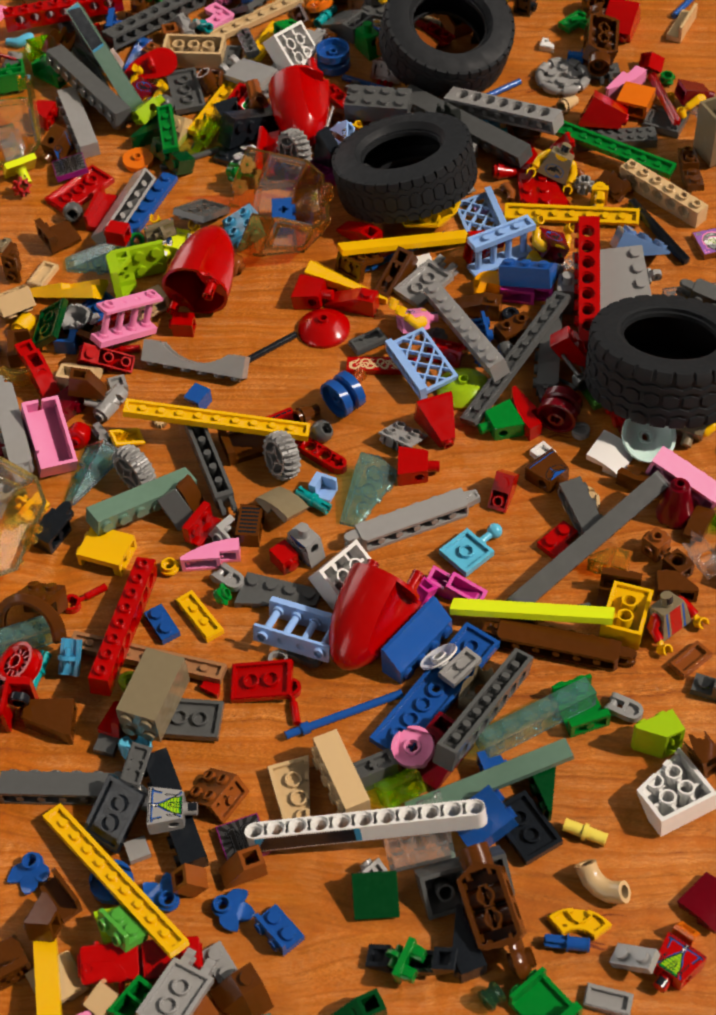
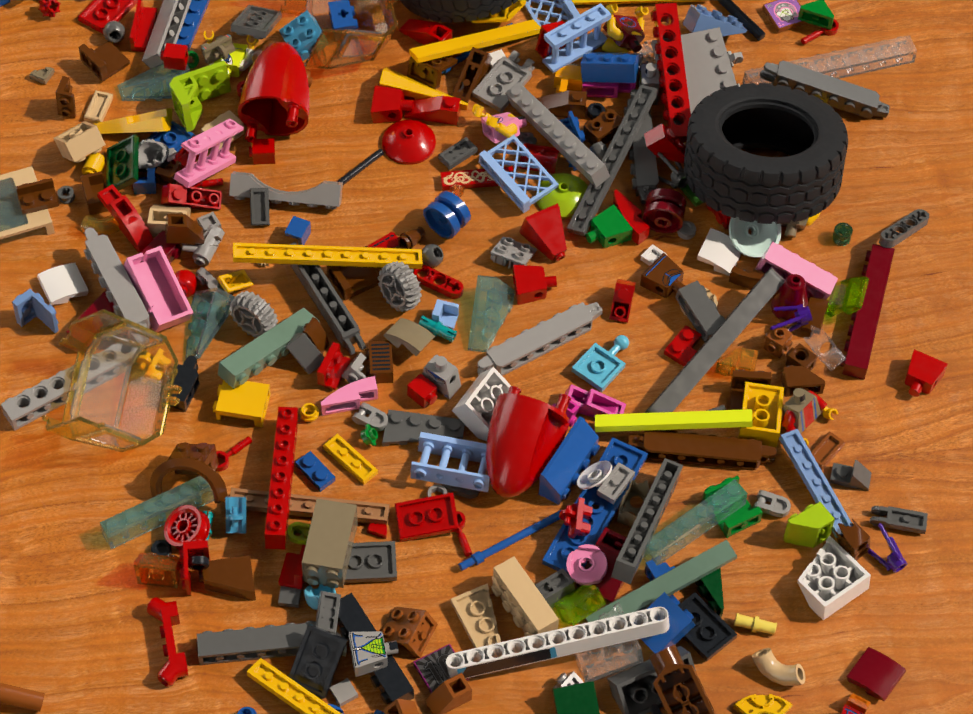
camera: 15 degrees left, 5 degrees up
(166, 372) = (259, 206): none -> dark grey tile
(415, 691) = (573, 518): none -> red hips
(672, 685) = (814, 477): none -> medium blue plate
(684, 521) = (802, 316): none -> dark purple plant

